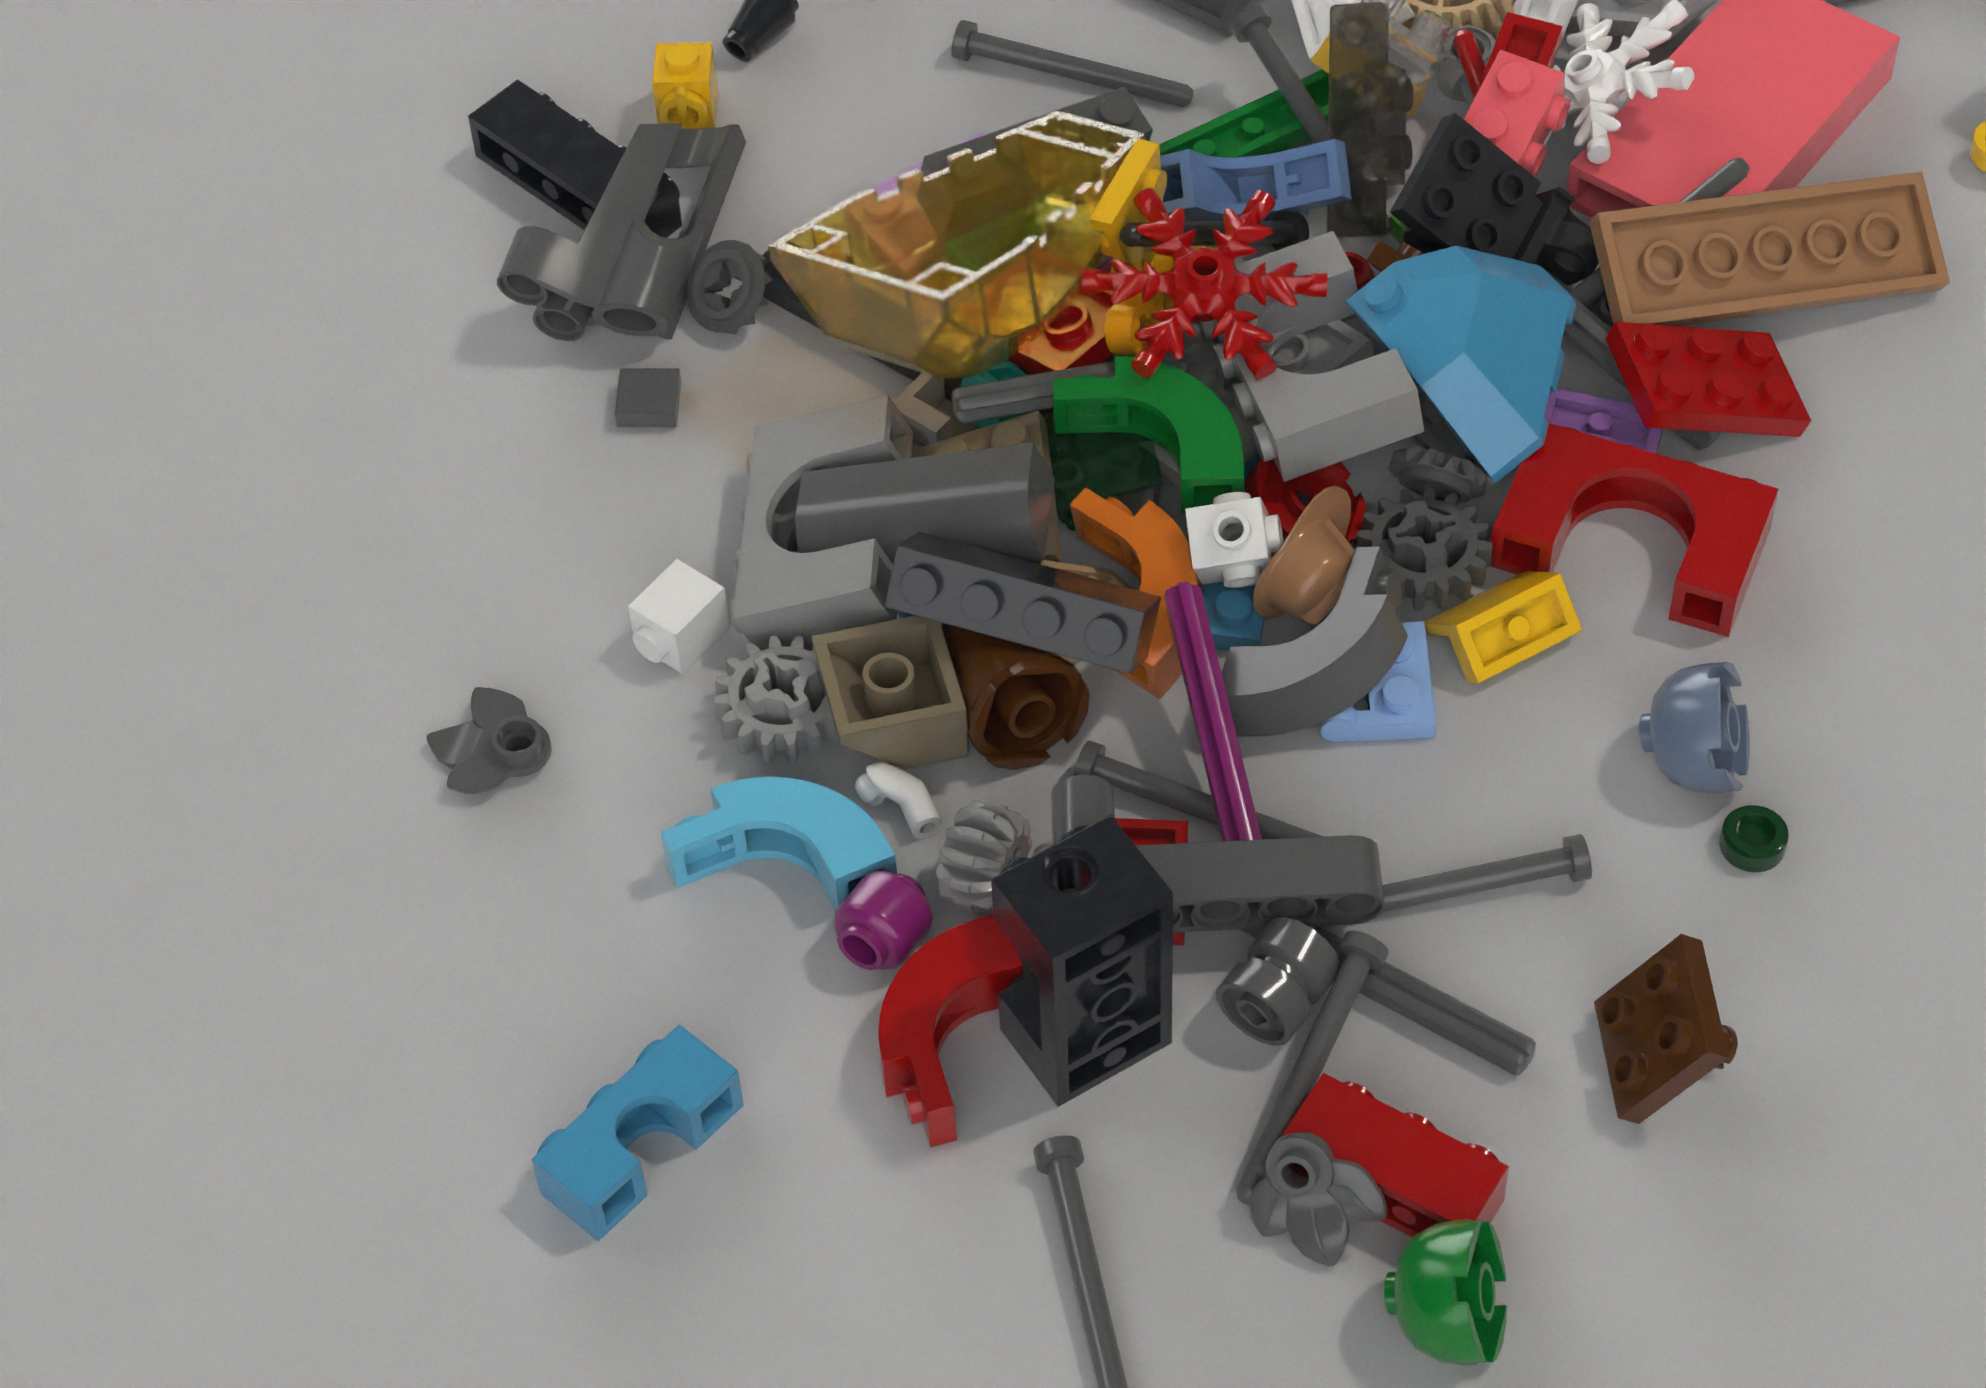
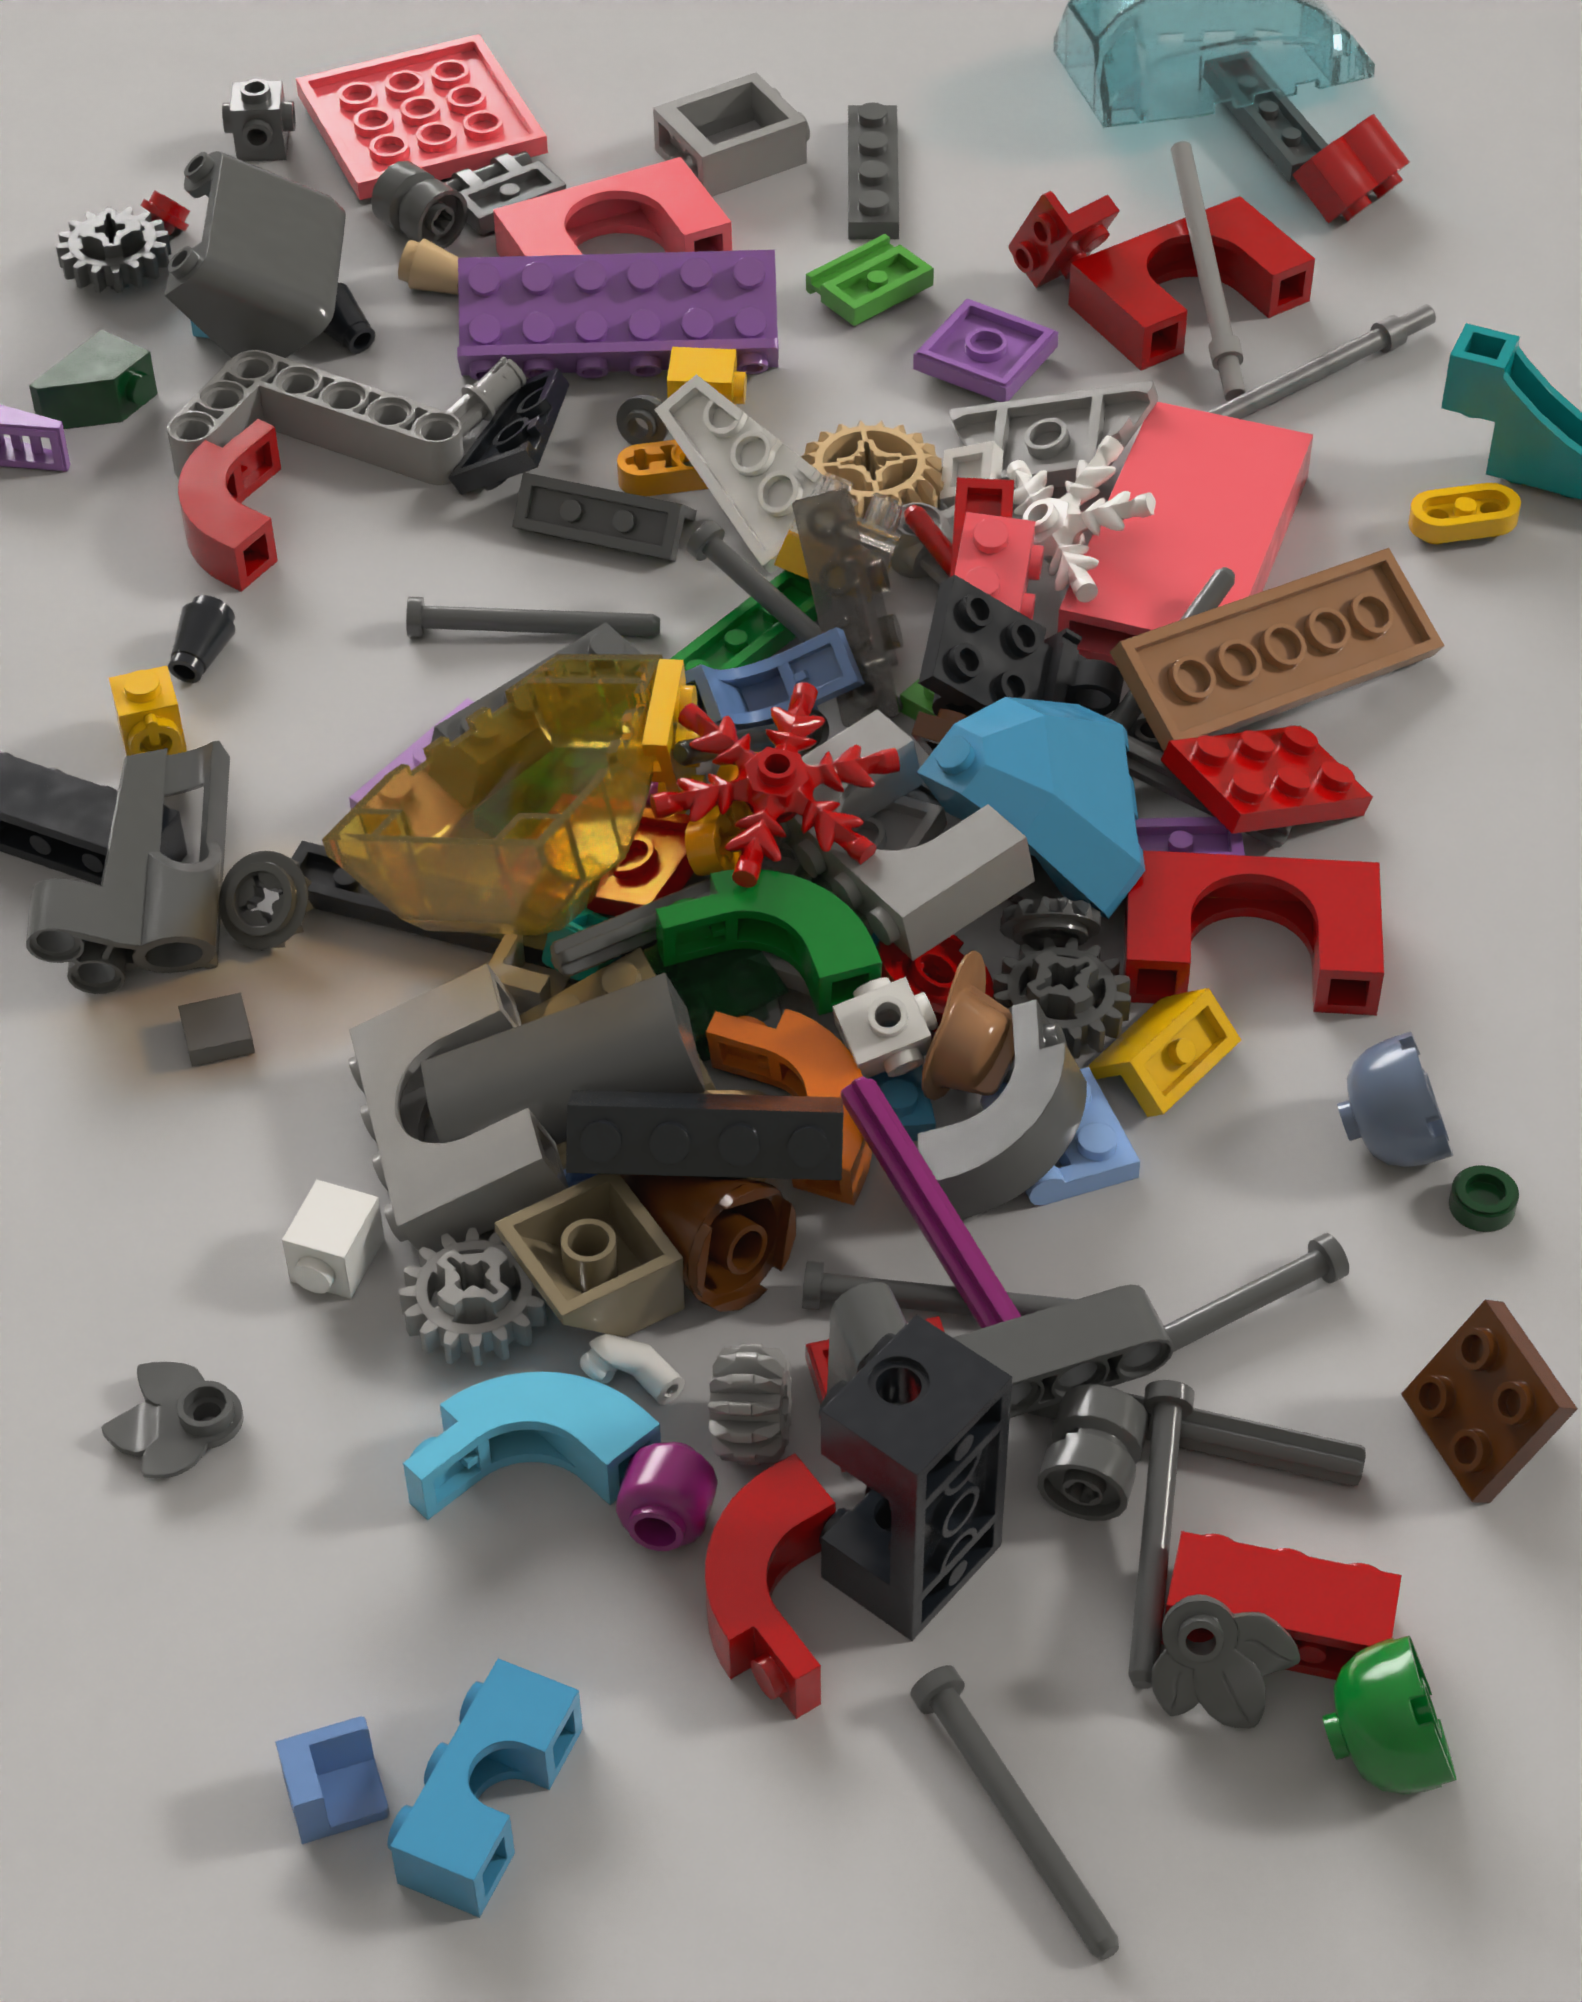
camera: 20 degrees left, 5 degrees down
(511, 1090) = (332, 1779): none -> medium blue panel

